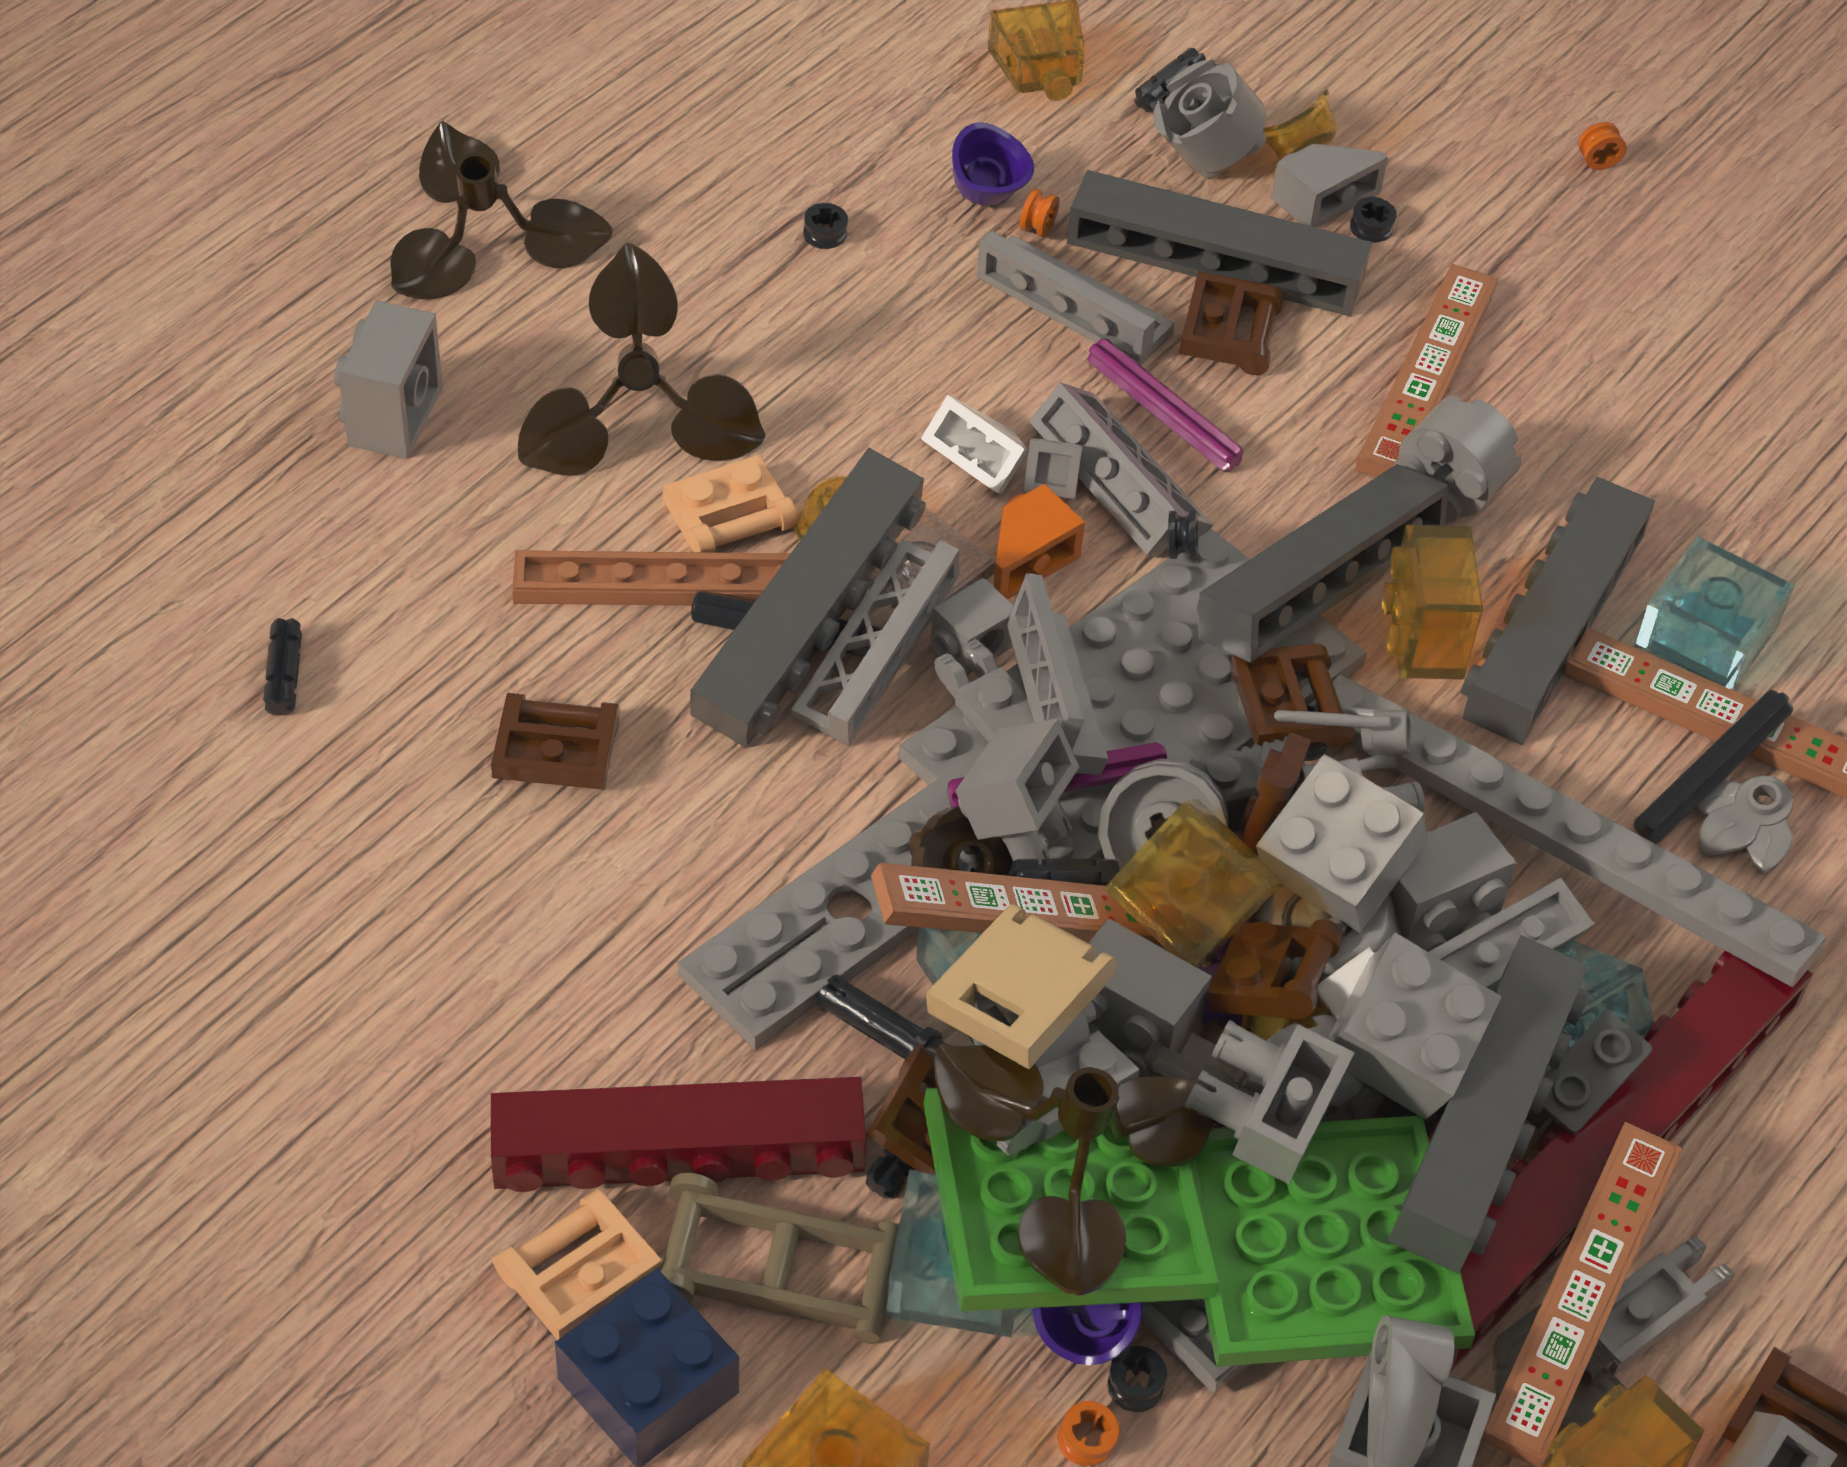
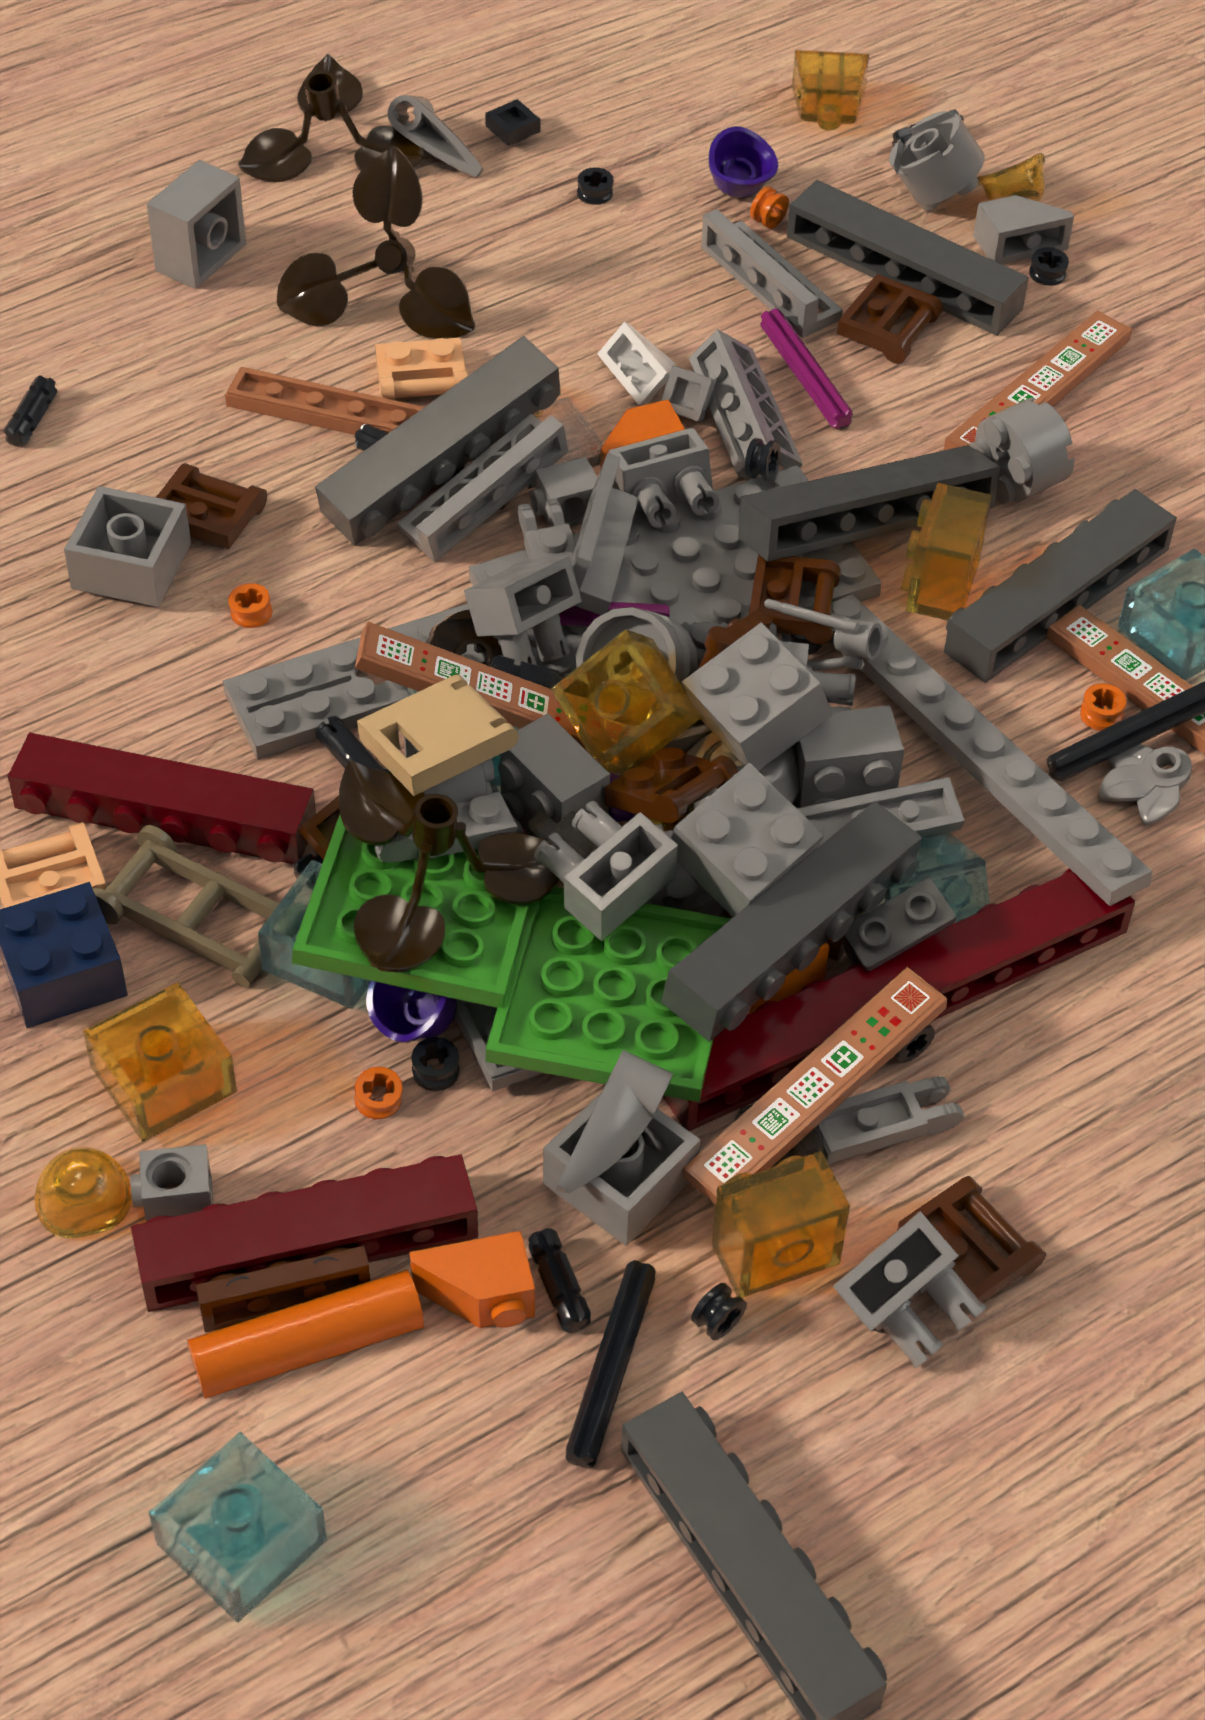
camera: 20 degrees right, 0 degrees up
(495, 819) = (128, 546): none -> light grey brick
(613, 200) = (431, 133): none -> light grey piece
(678, 859) = (258, 612): none -> orange bush
(696, 164) = (512, 122): none -> black plate
(1086, 572) = (667, 473): none -> light grey brick
(1660, 758) = (1102, 695): none -> orange bush

